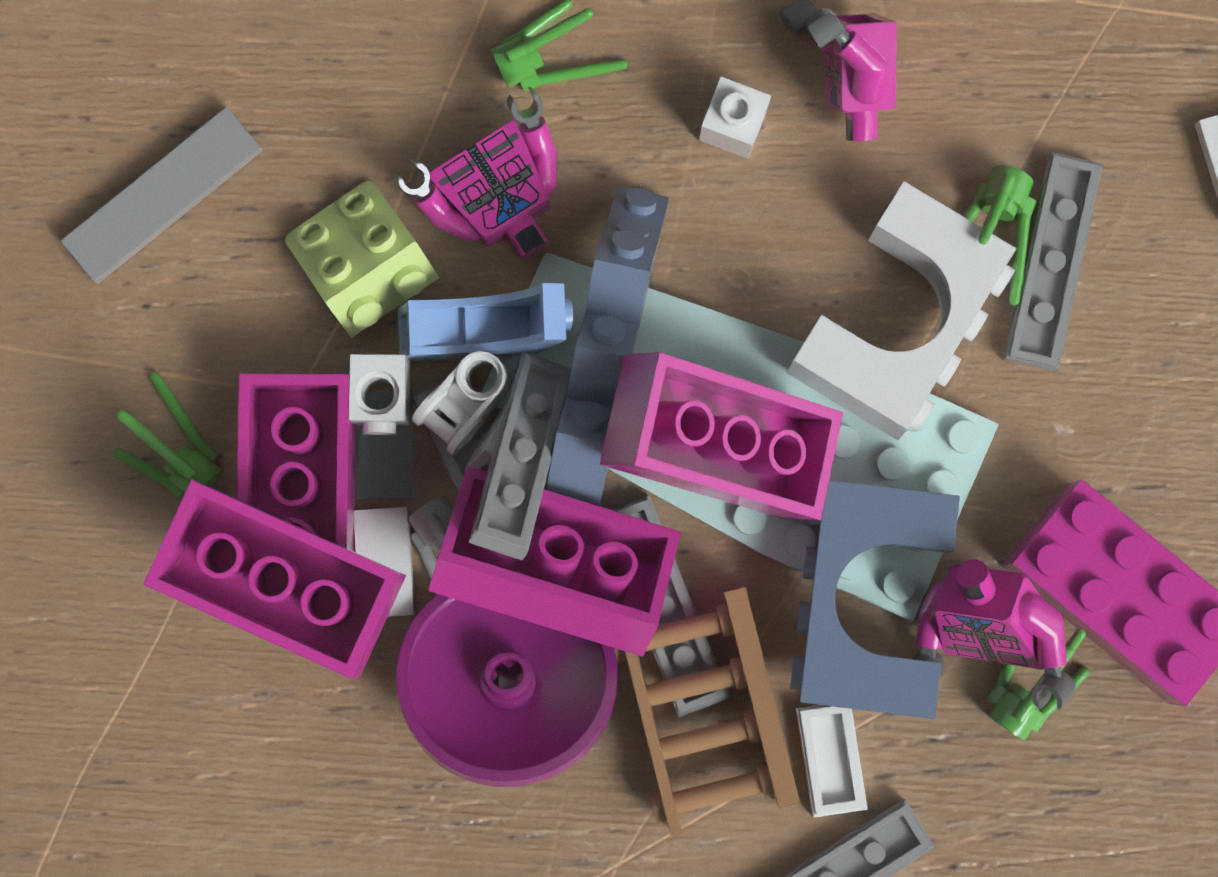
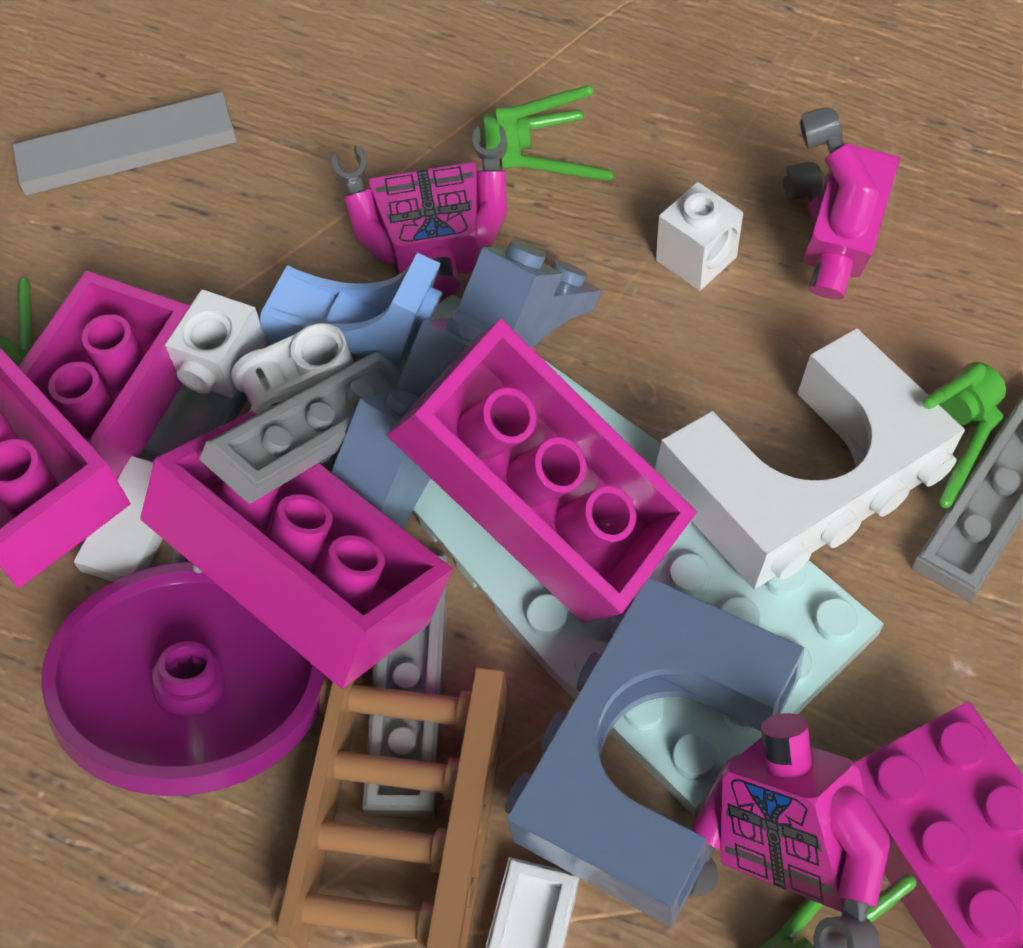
camera: 25 degrees right, 25 degrees down
(360, 258) = (259, 238): yellowish green bracket -> none

